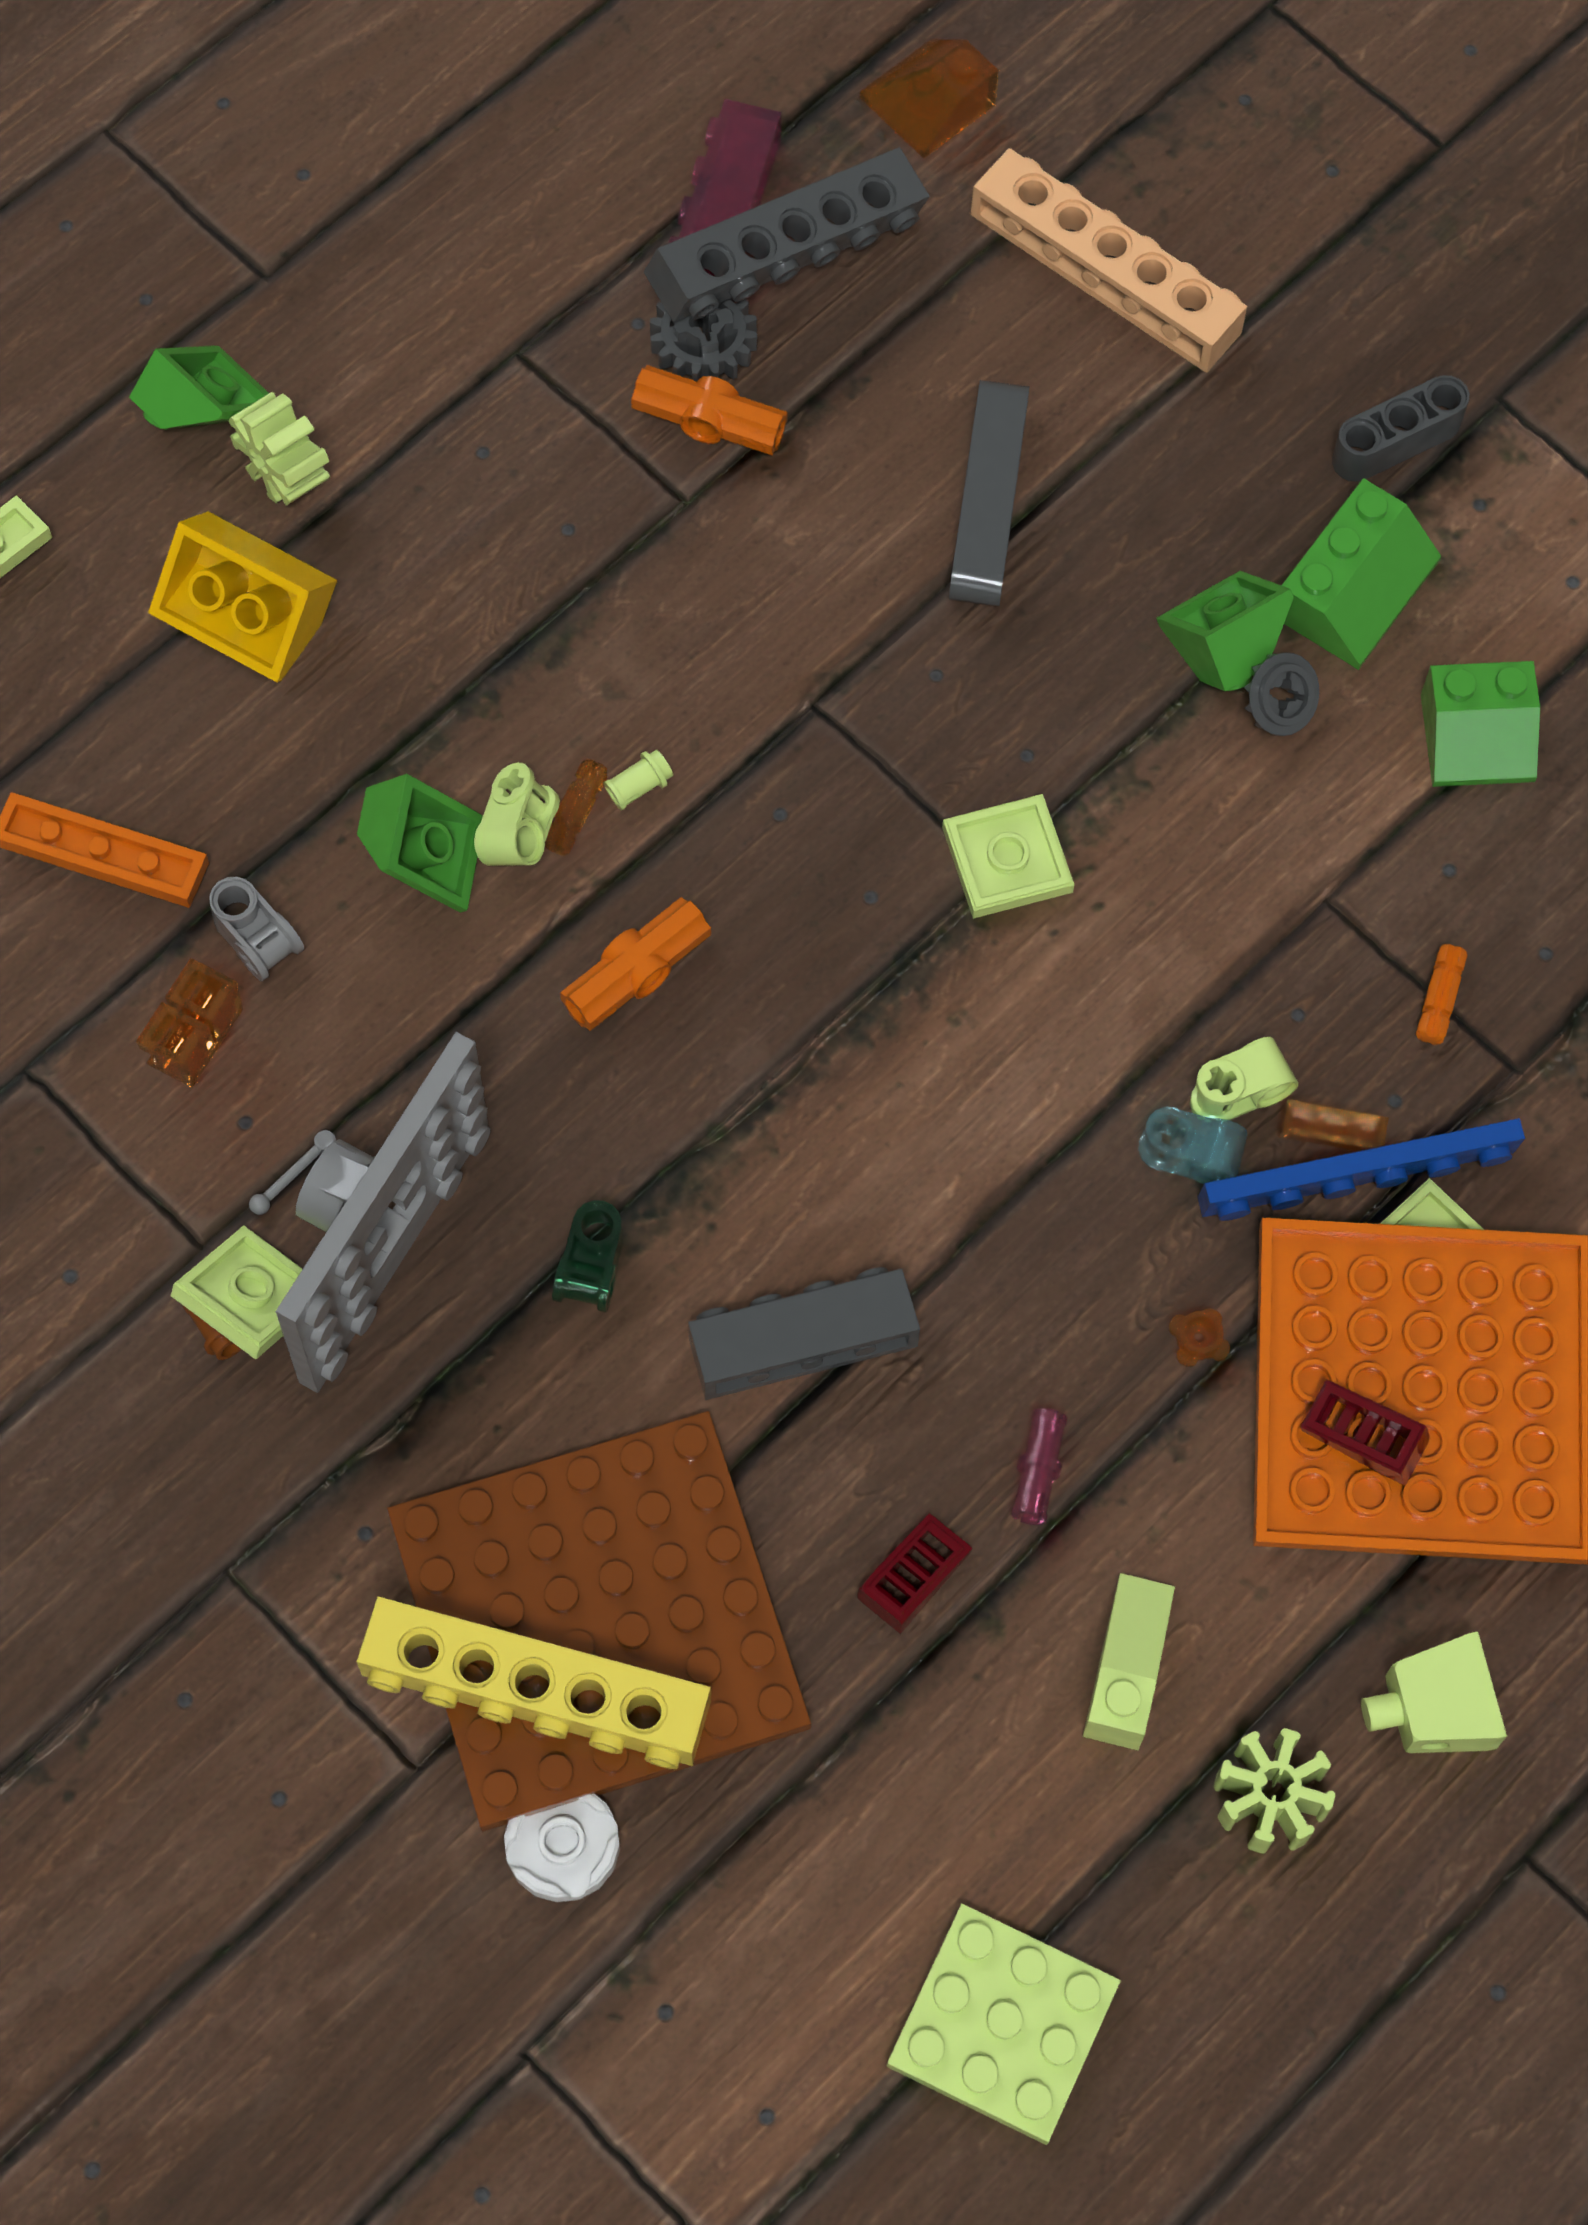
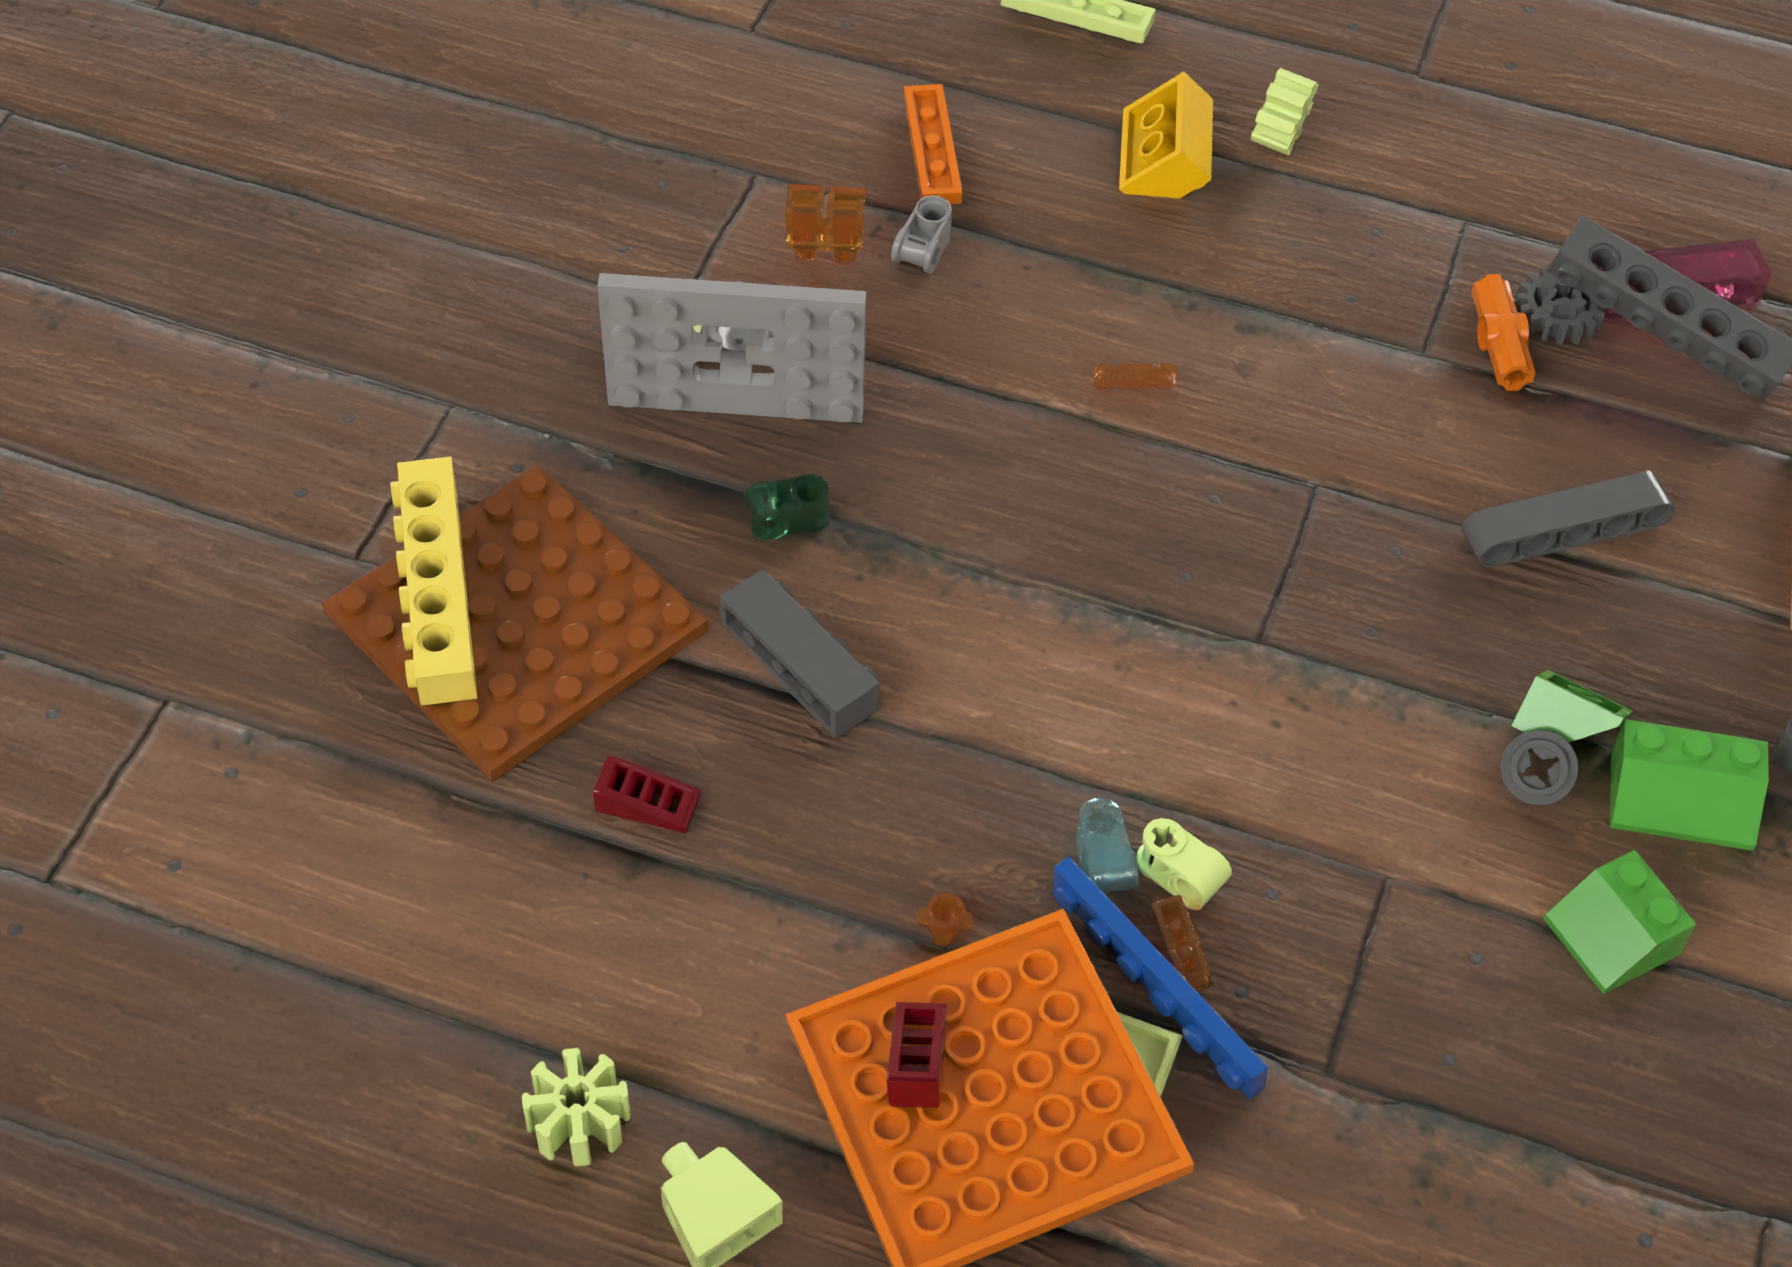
camera: 65 degrees right, 15 degrees down
(193, 387) = (1302, 51): bright green slope -> none
(421, 838) = (1047, 299): bright green slope -> none
(518, 823) = (1108, 338): yellowish green piece -> none
(564, 1863) = (336, 673): white tile -> none
(635, 963) = (1033, 449): orange piece -> none
(639, 779) = (1180, 400): yellowish green pin -> none
(1003, 2024) = (304, 992): yellowish green plate -> none
(1008, 856) = (1275, 646): yellowish green tile -> none
(1039, 1466) = (774, 845): clear pink pin -> none
(1129, 1662) = (639, 963): yellowish green slope -> none
(1441, 994) = (1355, 986): orange axle -> none

